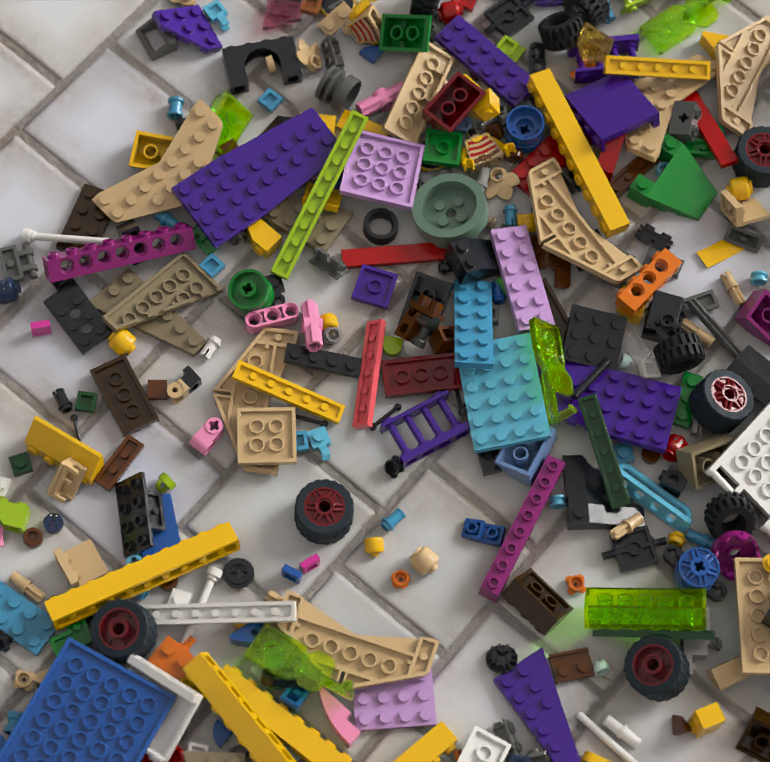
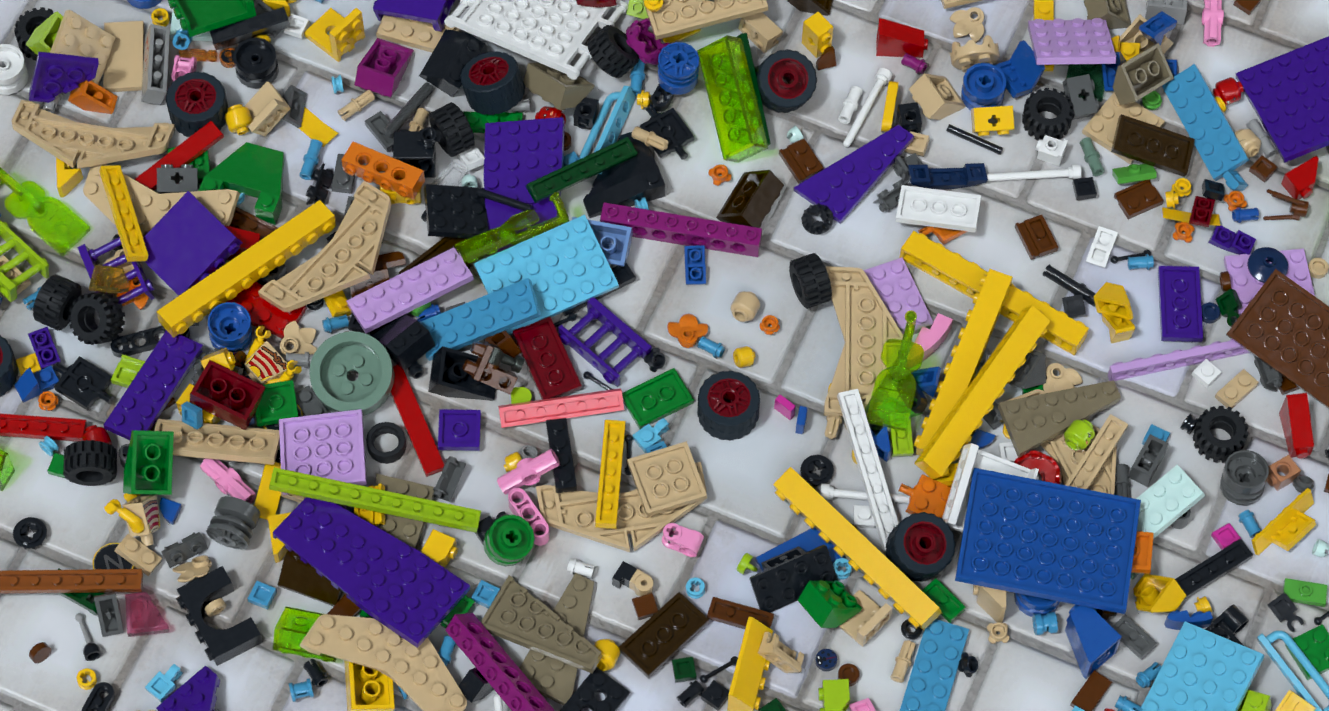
camera: 100 degrees left, 5 degrees down
(56, 419) = (715, 695): none -> black plate
(101, 538) = (828, 603): none -> green slope
(156, 440) = (697, 581): none -> medium azure bush
(236, 658) = (901, 441): none -> lime plate
(356, 459) = (657, 398): none -> green tile
(420, 505) = (687, 330): none -> orange plate
(428, 621) = (810, 280): none -> black tyre
(443, 80) = (192, 415): none -> dark azure plate
(684, 237) = (310, 159): none -> dark azure pin

